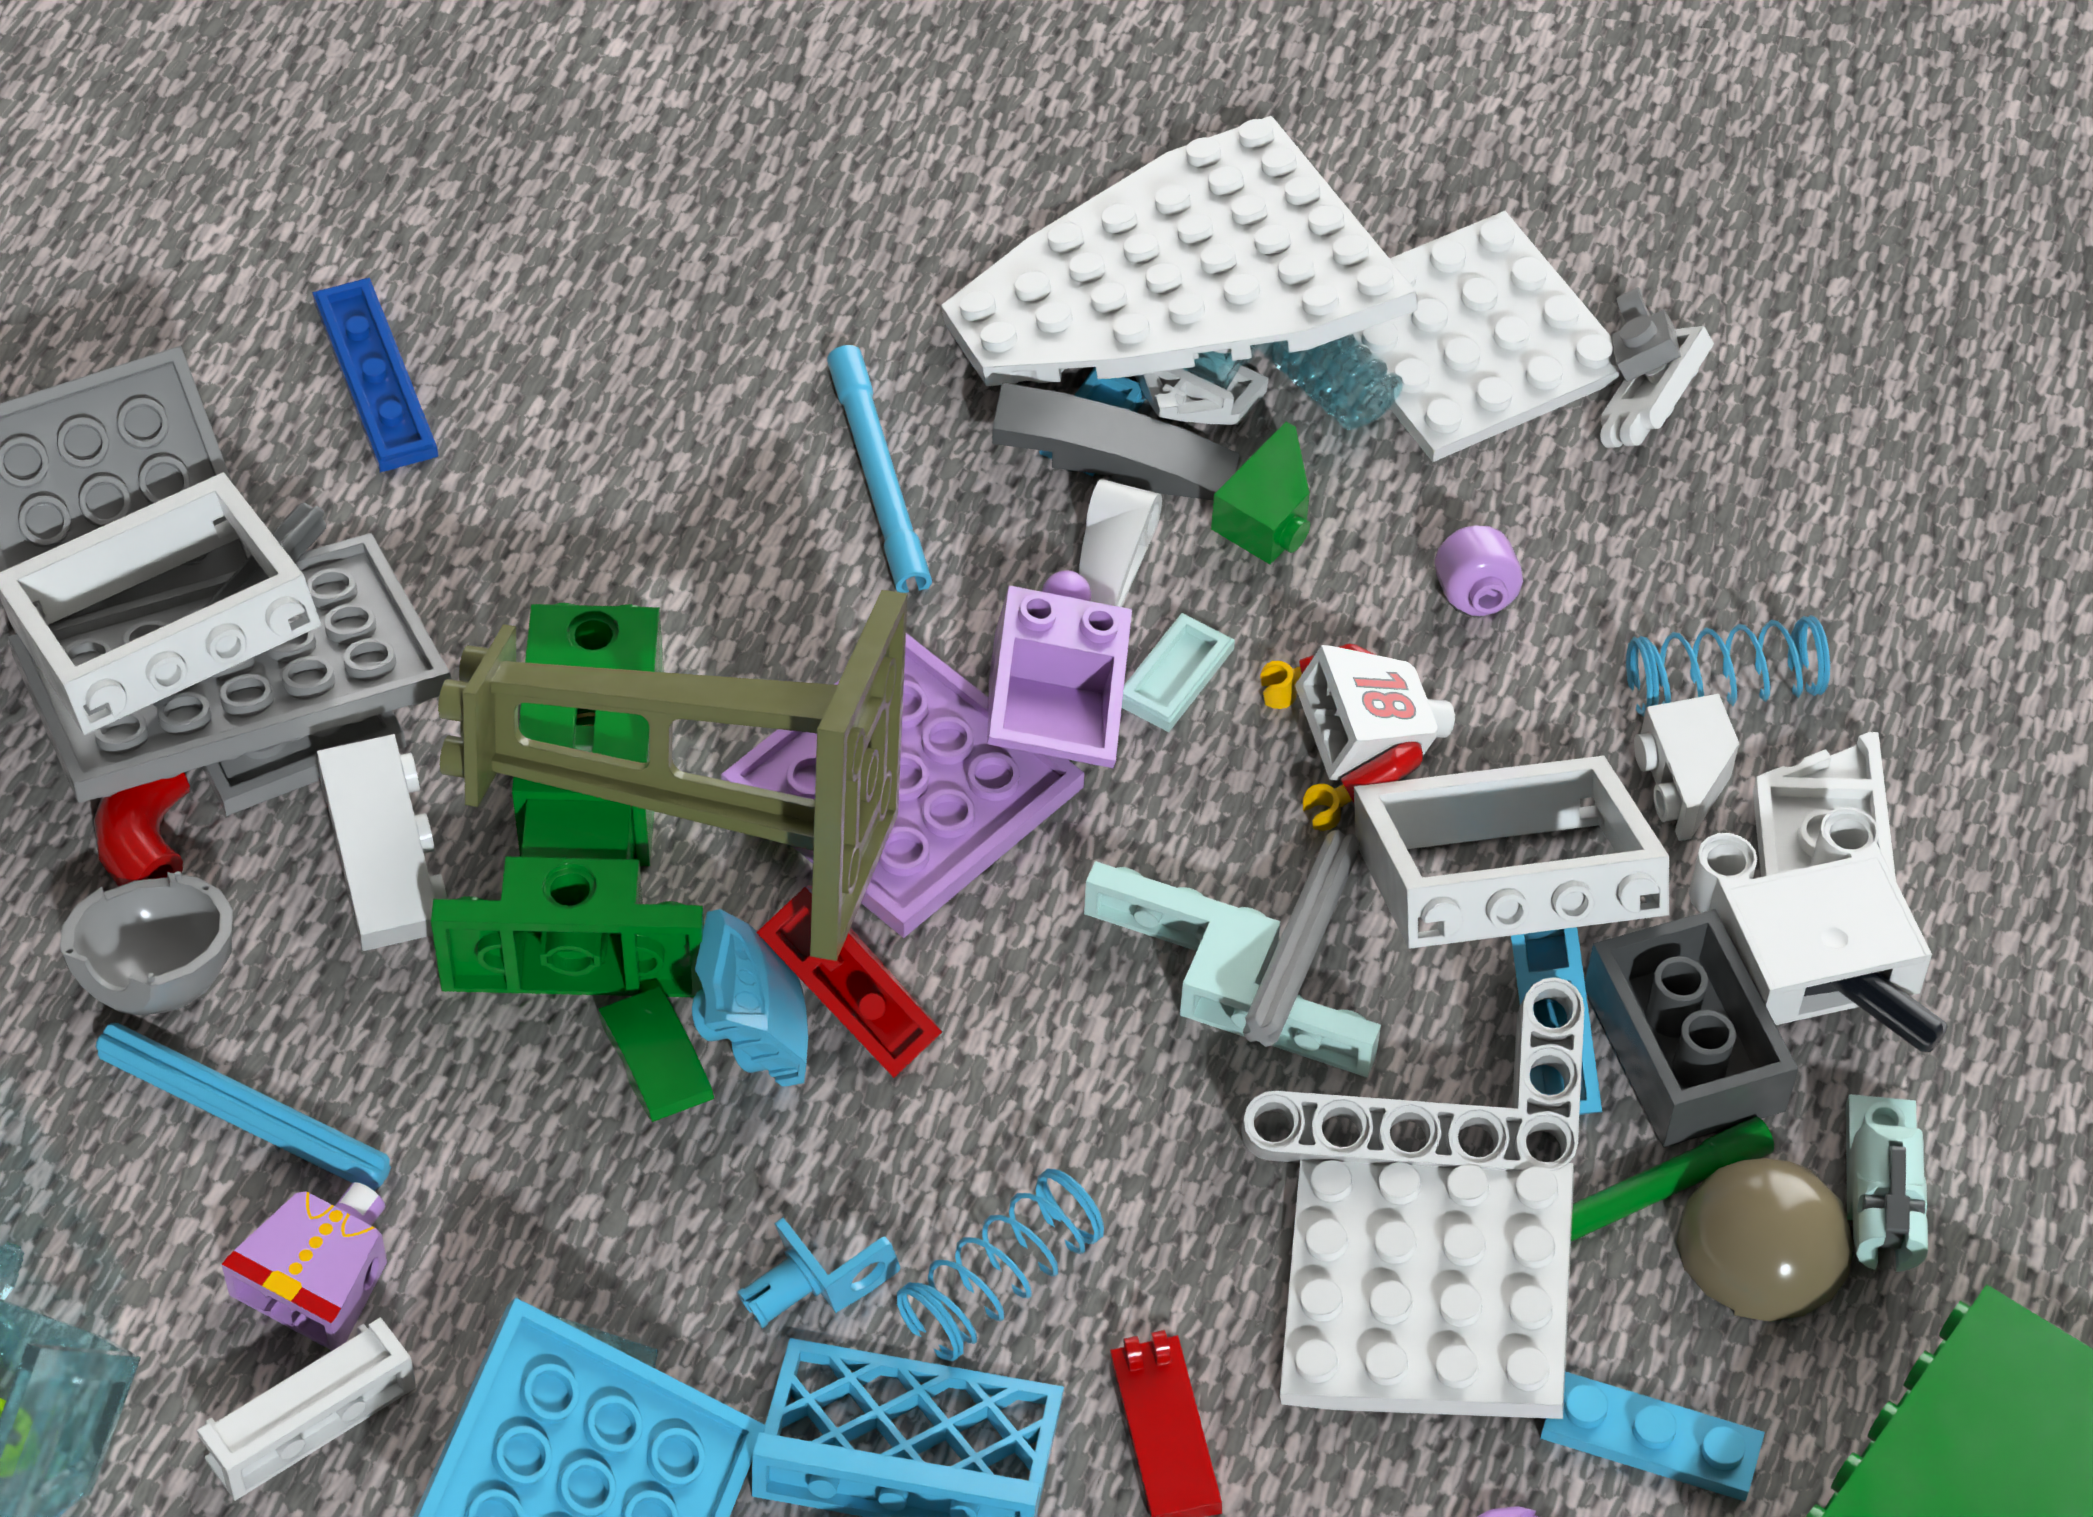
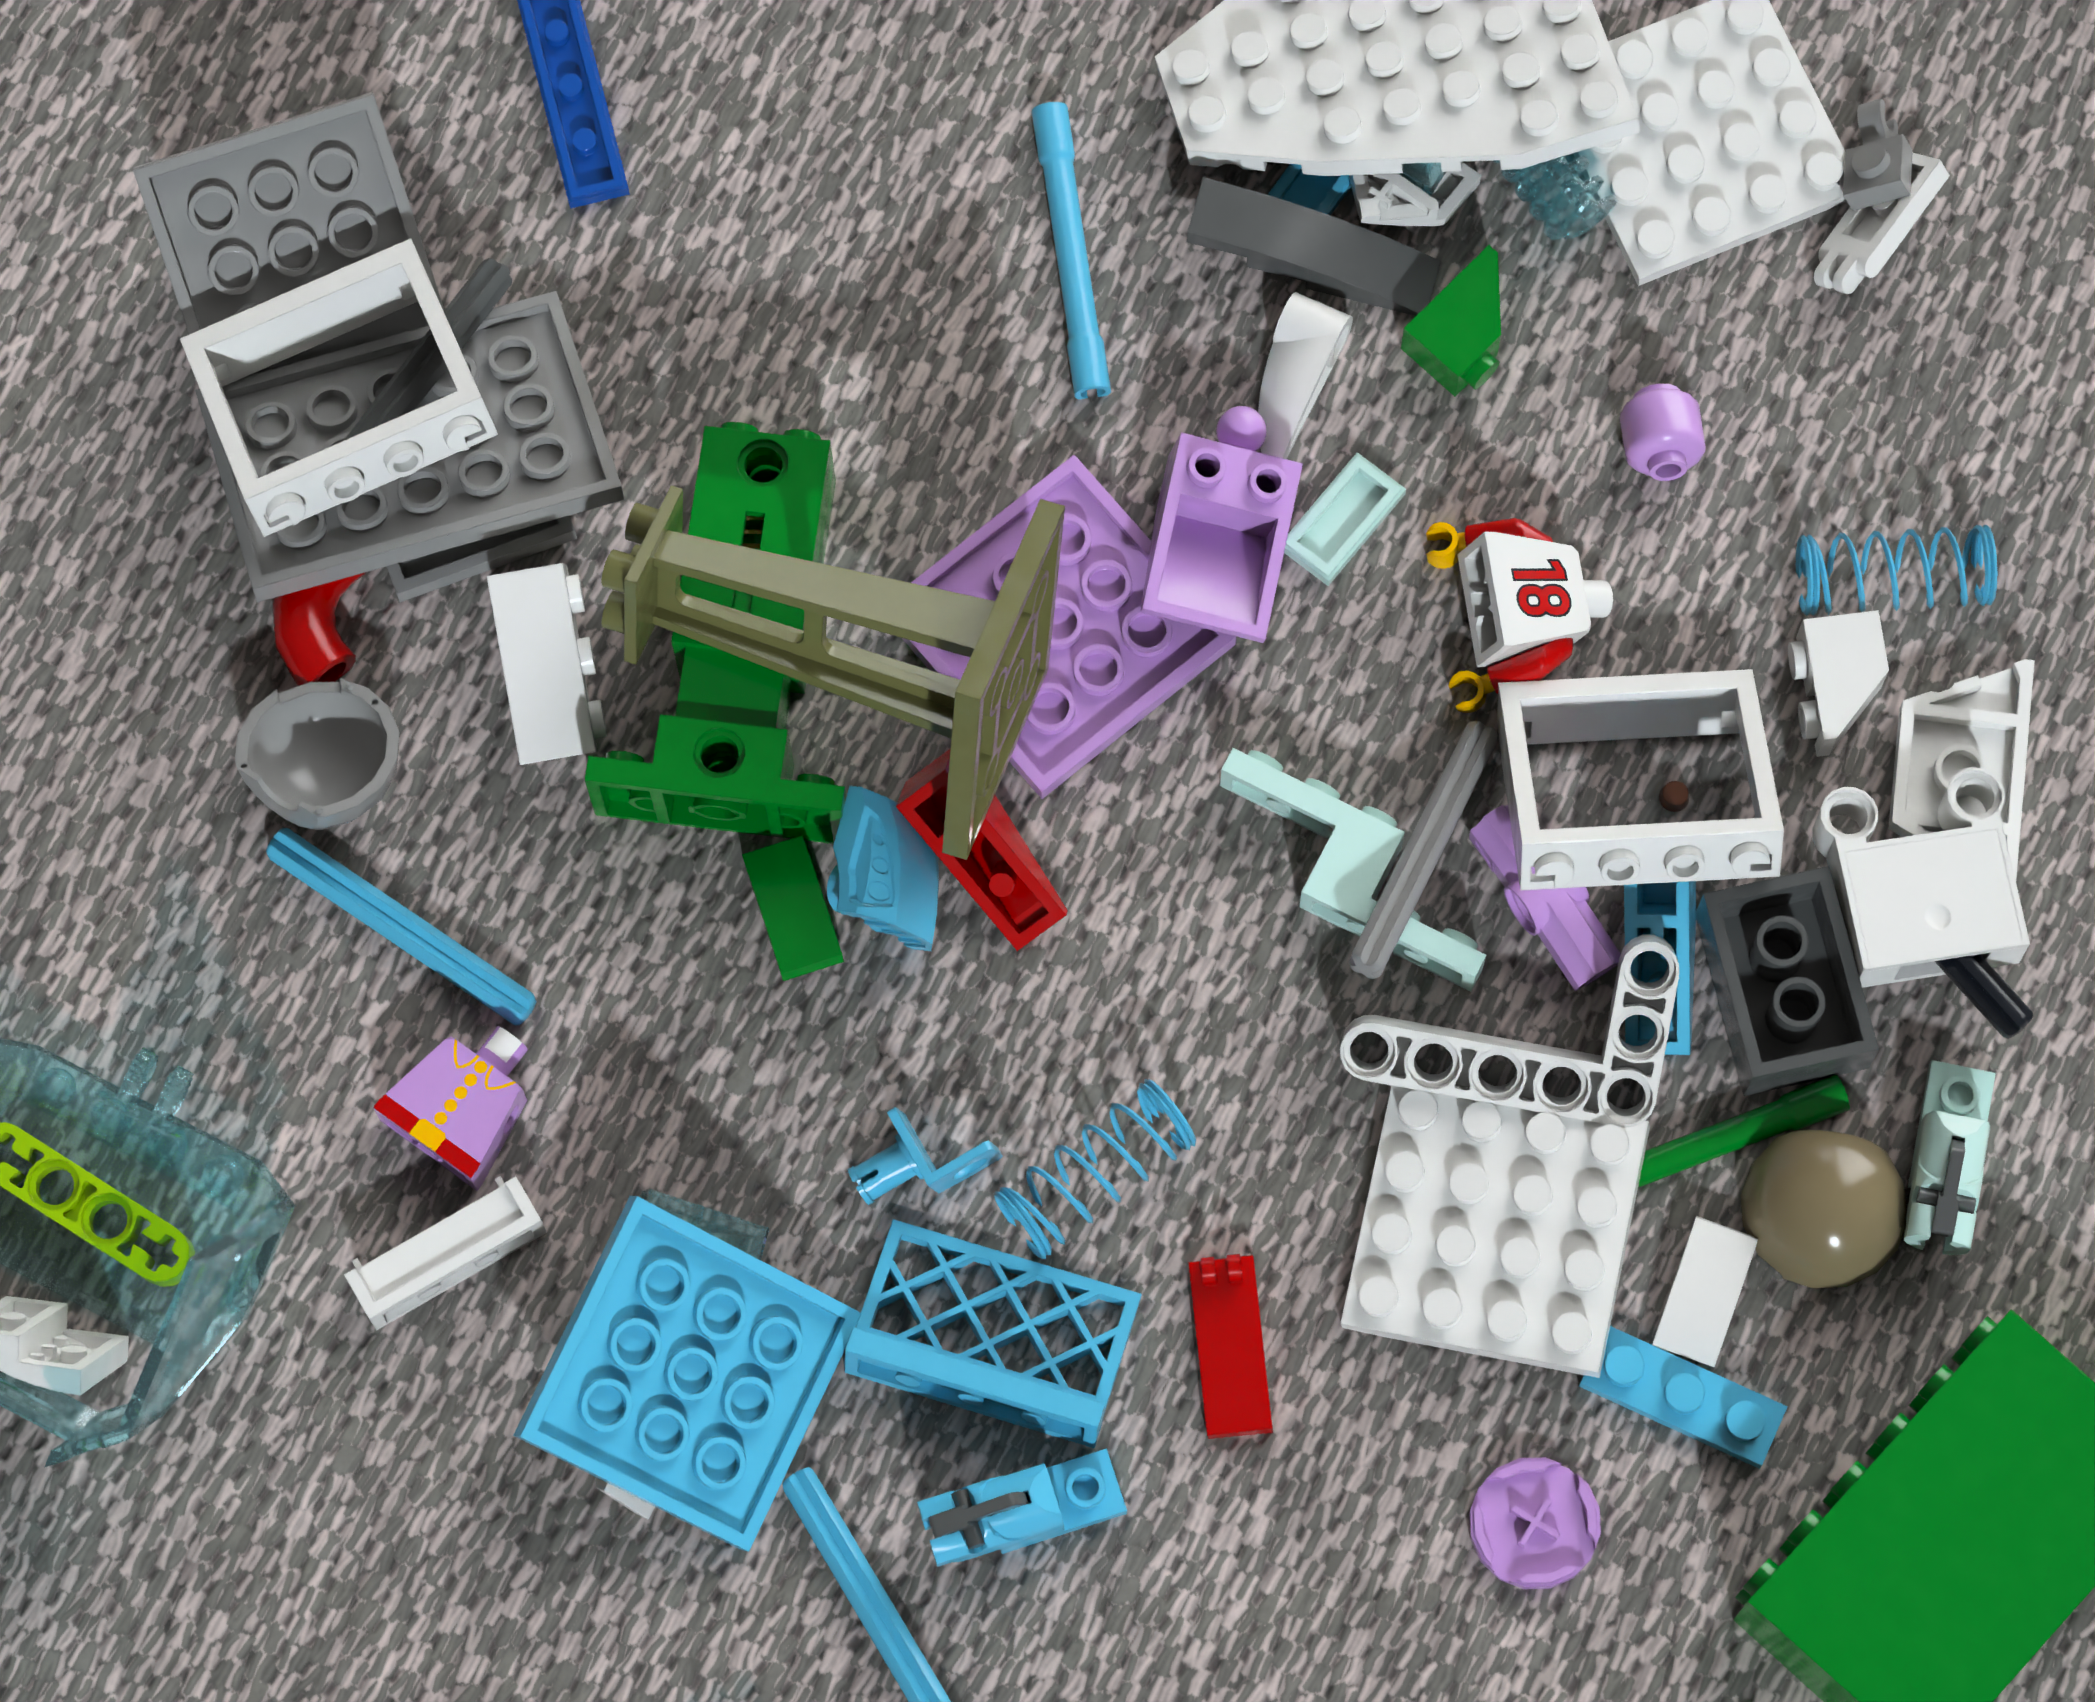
camera: 10 degrees right, 20 degrees up
(1433, 982) = (1556, 915): none -> lavender piece
(1658, 1330) = (1705, 1291): none -> white slope

